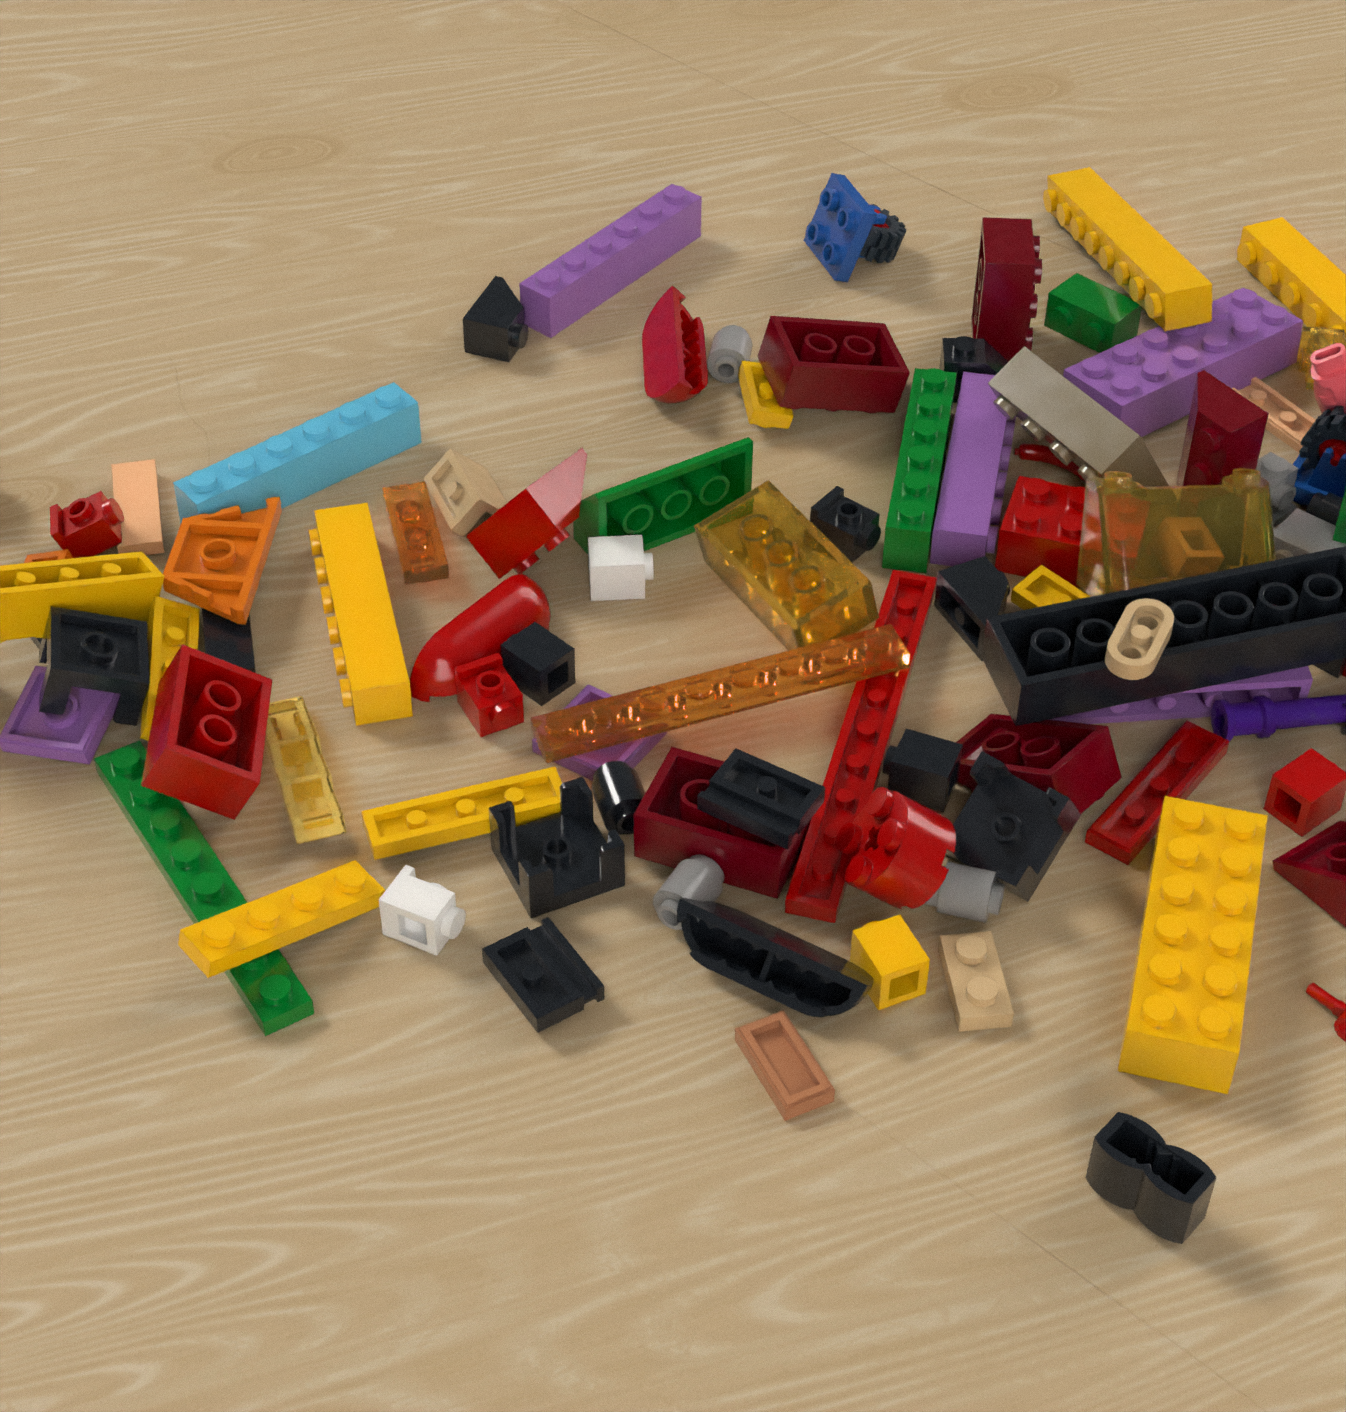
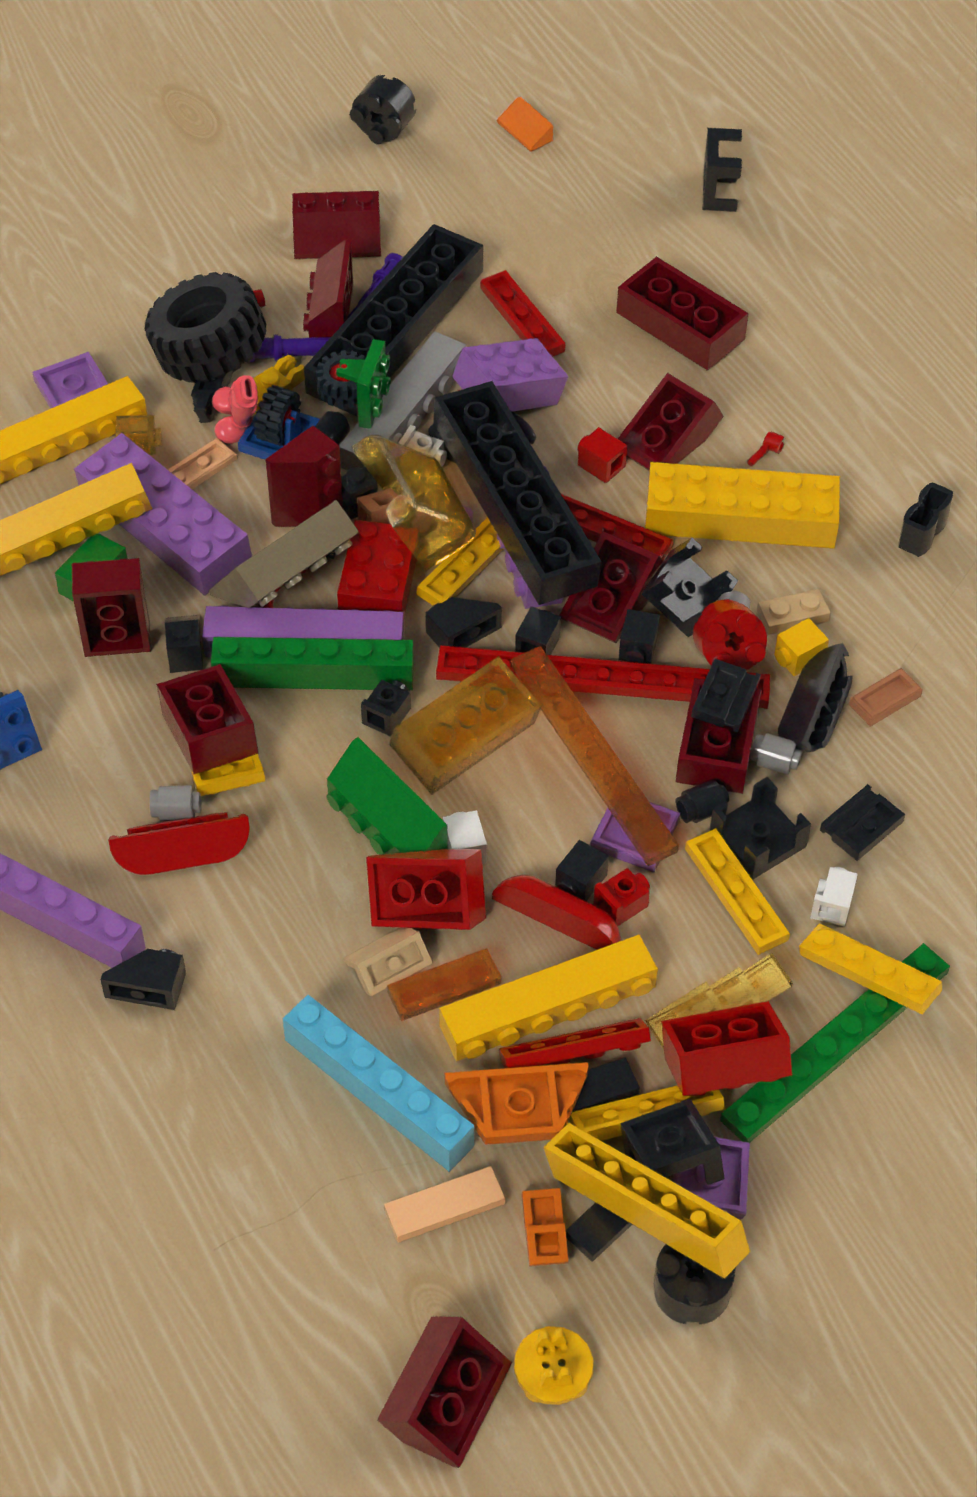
camera: 100 degrees left, 10 degrees up
(87, 525) = (489, 1233): red brick -> none
(287, 624) = (587, 1043): none -> red plate
(947, 675) = (538, 629): none -> black brick
(1139, 639) = (559, 494): tan plate -> none

